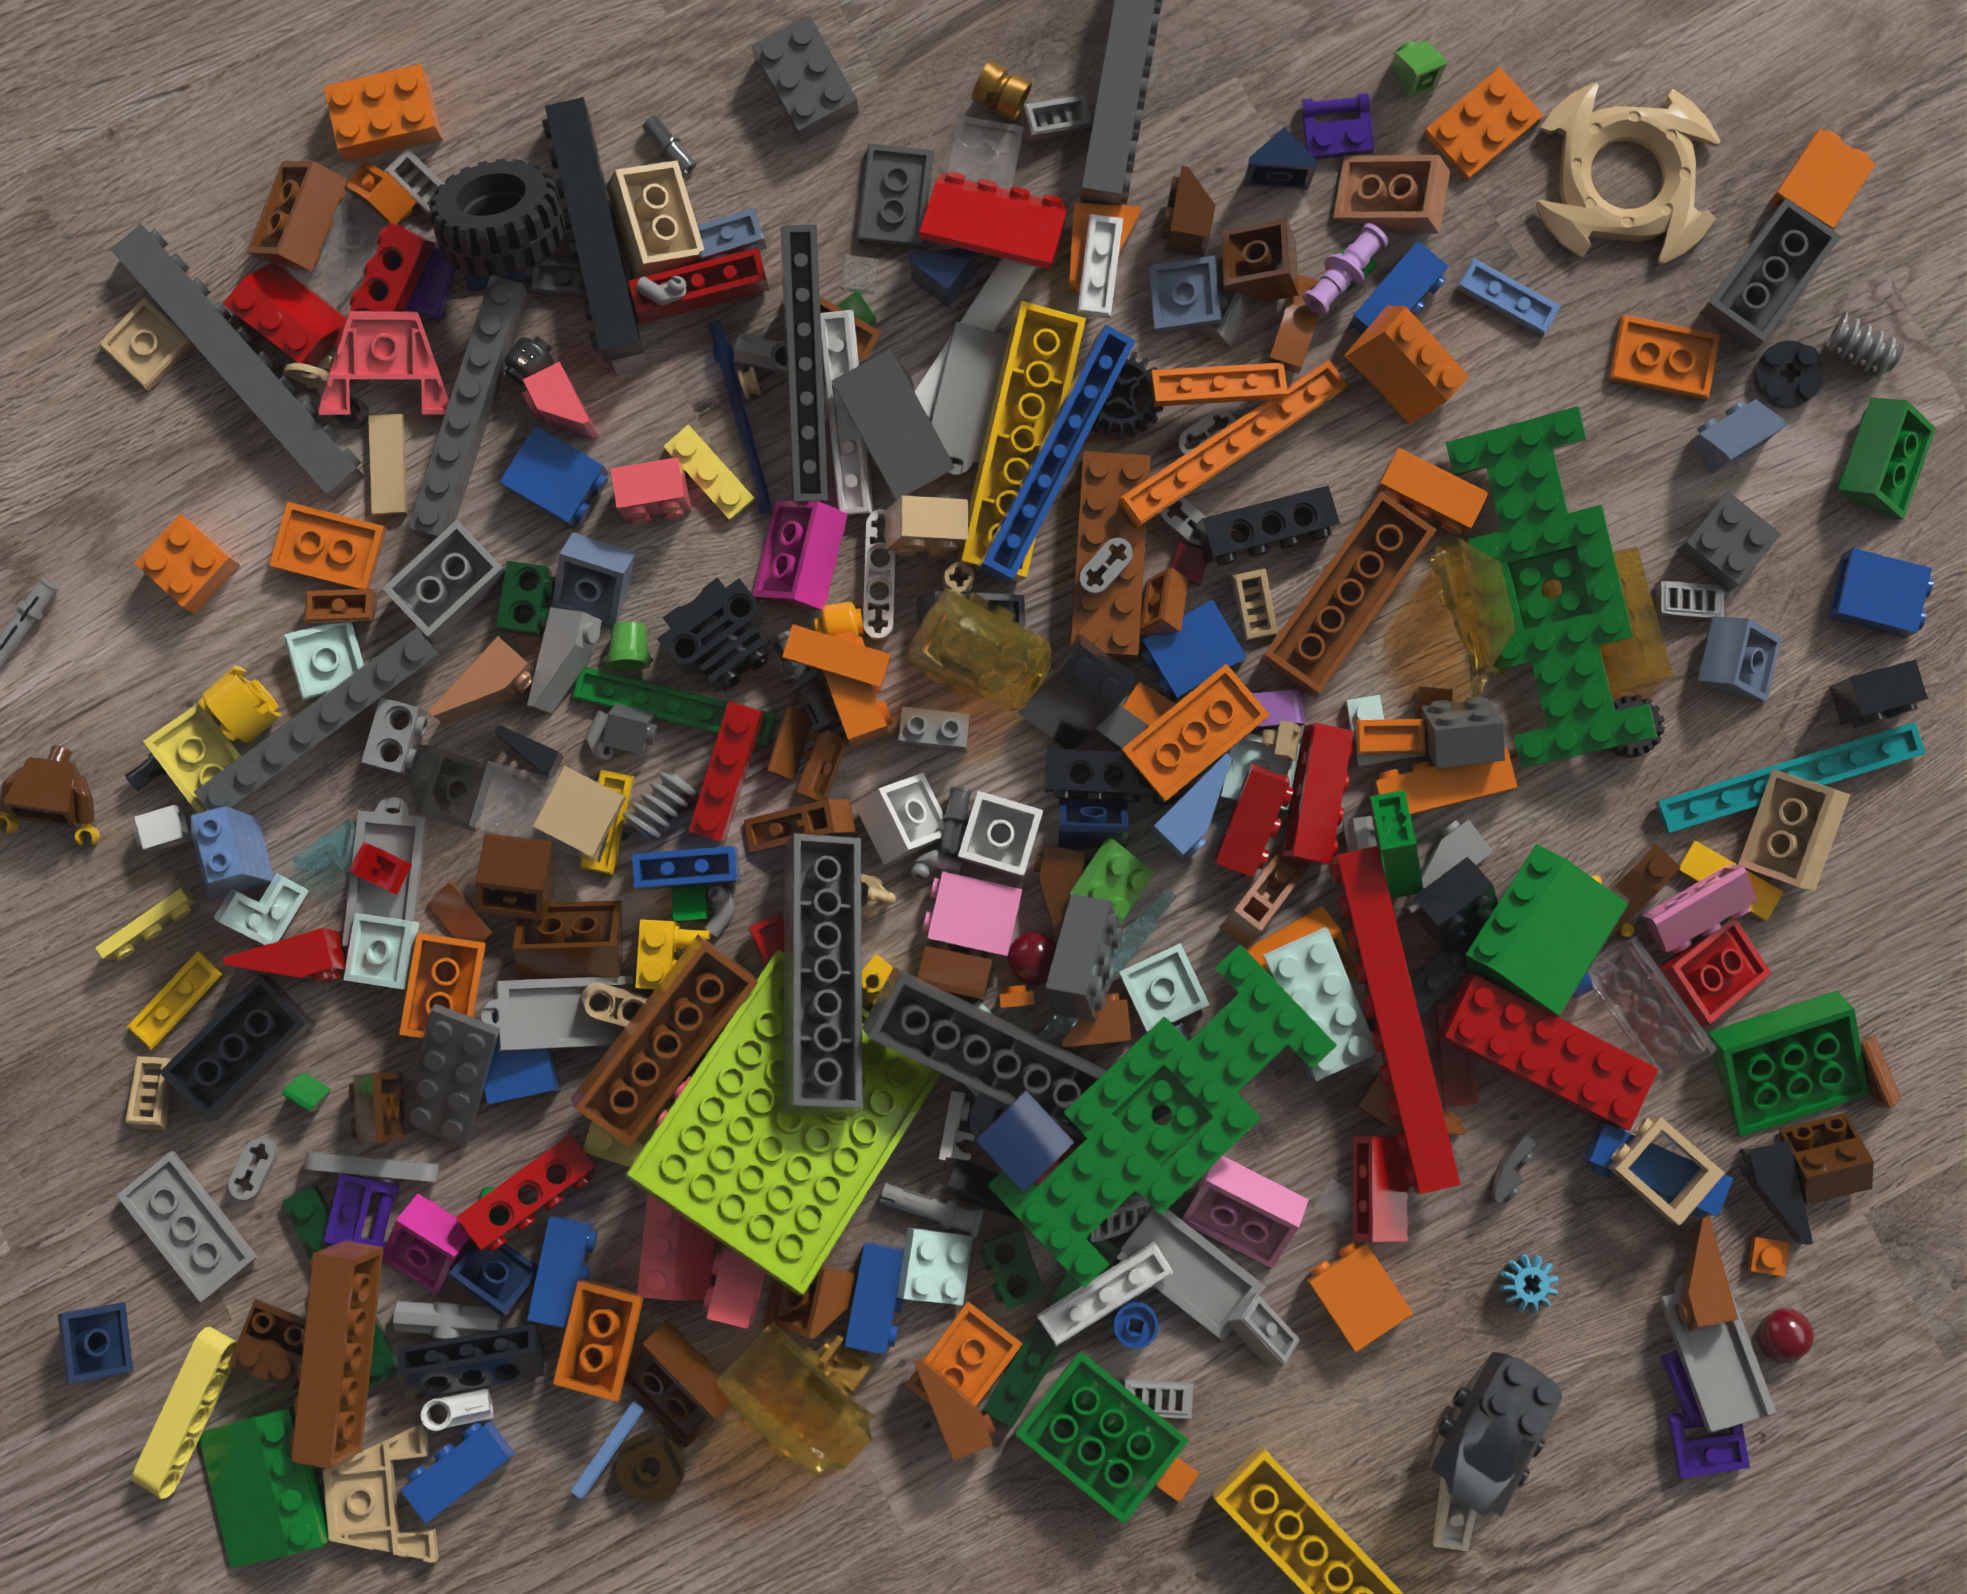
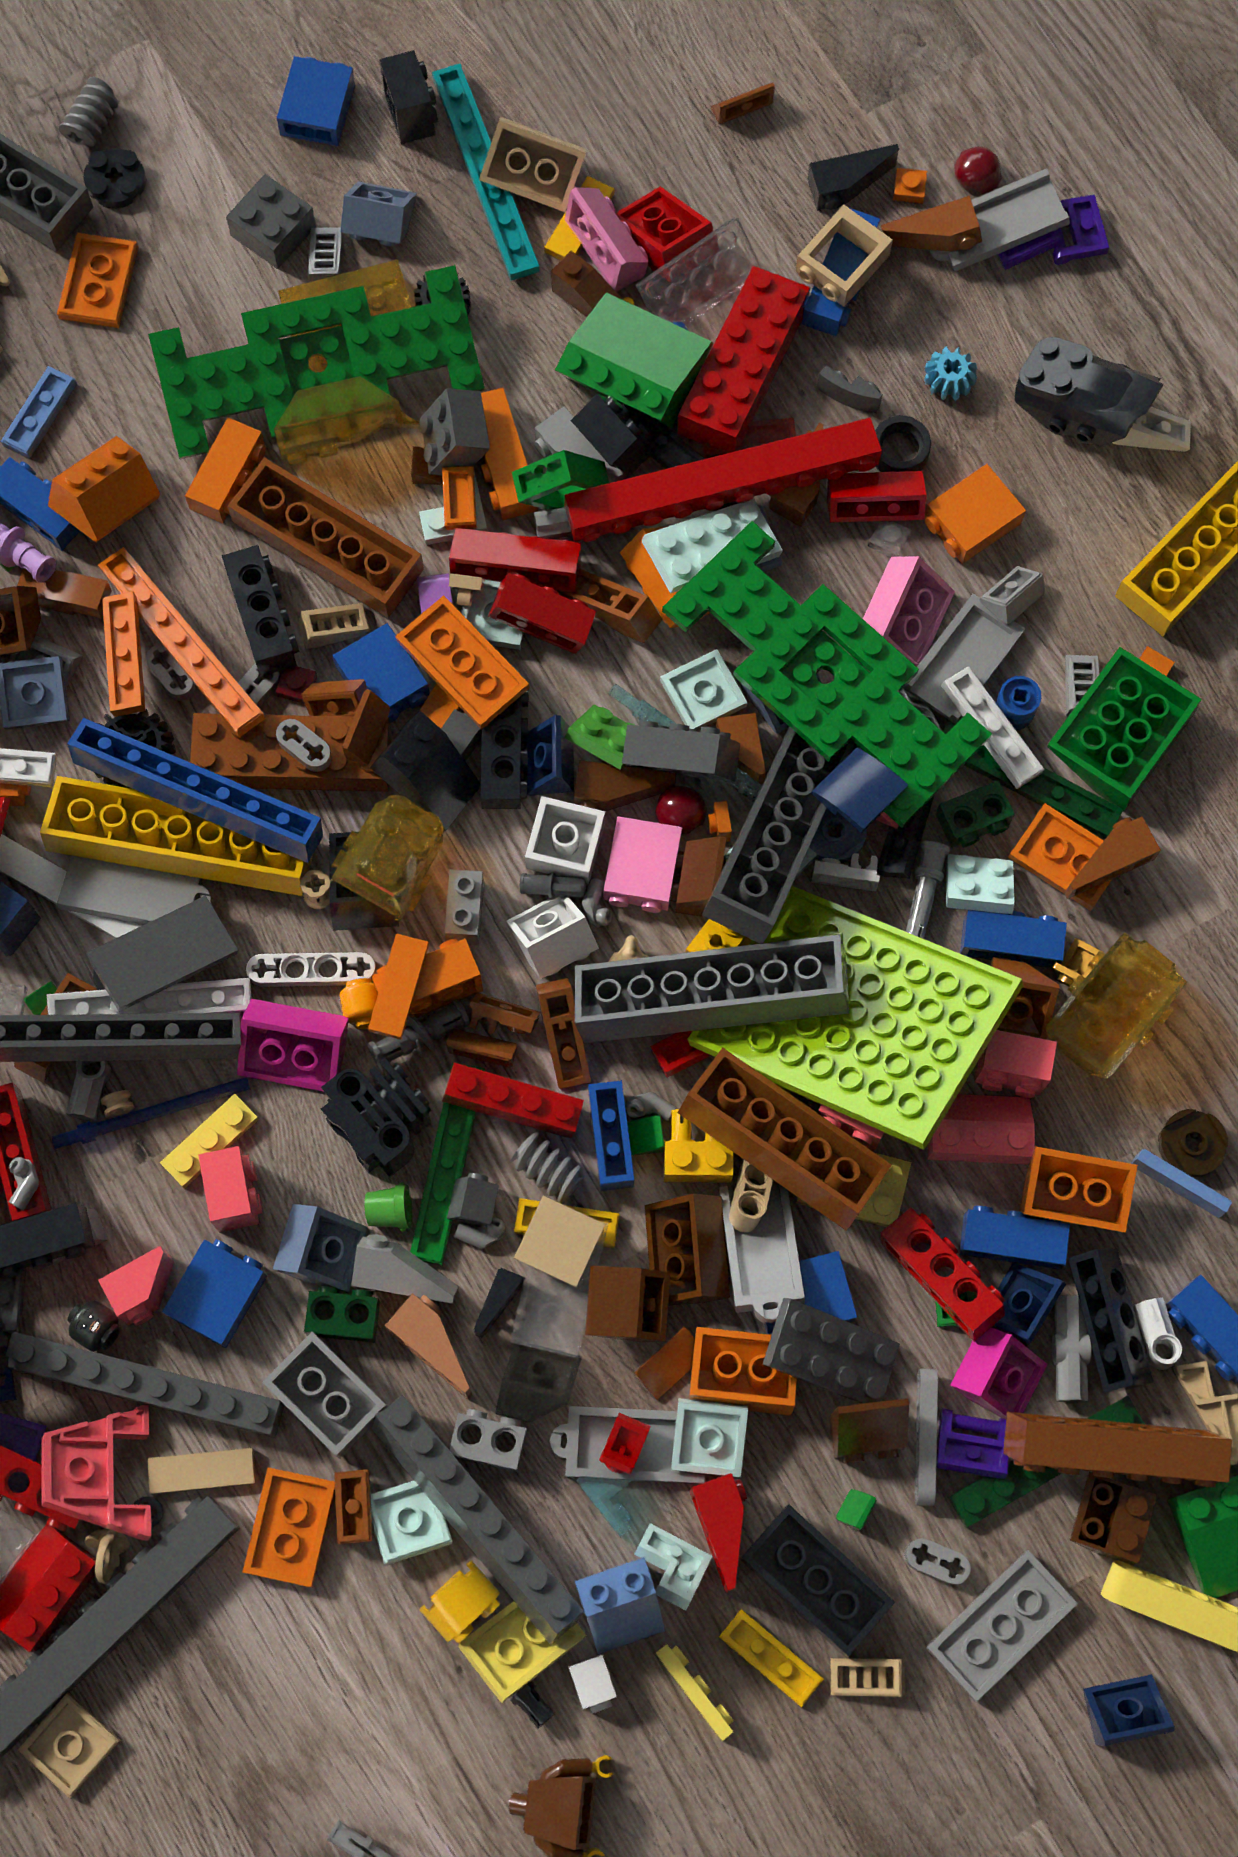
camera: 95 degrees left, 10 degrees down
(187, 564) = (310, 1676): orange brick -> none
(675, 1383) = (1114, 1117): reddish brown slope -> none
(926, 526) = (265, 917): tan brick -> none
(1120, 630) = (365, 728): none -> dark orange slope
(1190, 817) = (543, 663): medium blue slope -> none
(1467, 1227) = (913, 428): none -> black tyre
(1737, 434) = (172, 213): sand blue slope -> none
(1790, 1062) = (738, 166): green slope -> none
(1829, 1158) = (820, 133): reddish brown slope -> none
(1887, 456) = (191, 97): green slope -> none

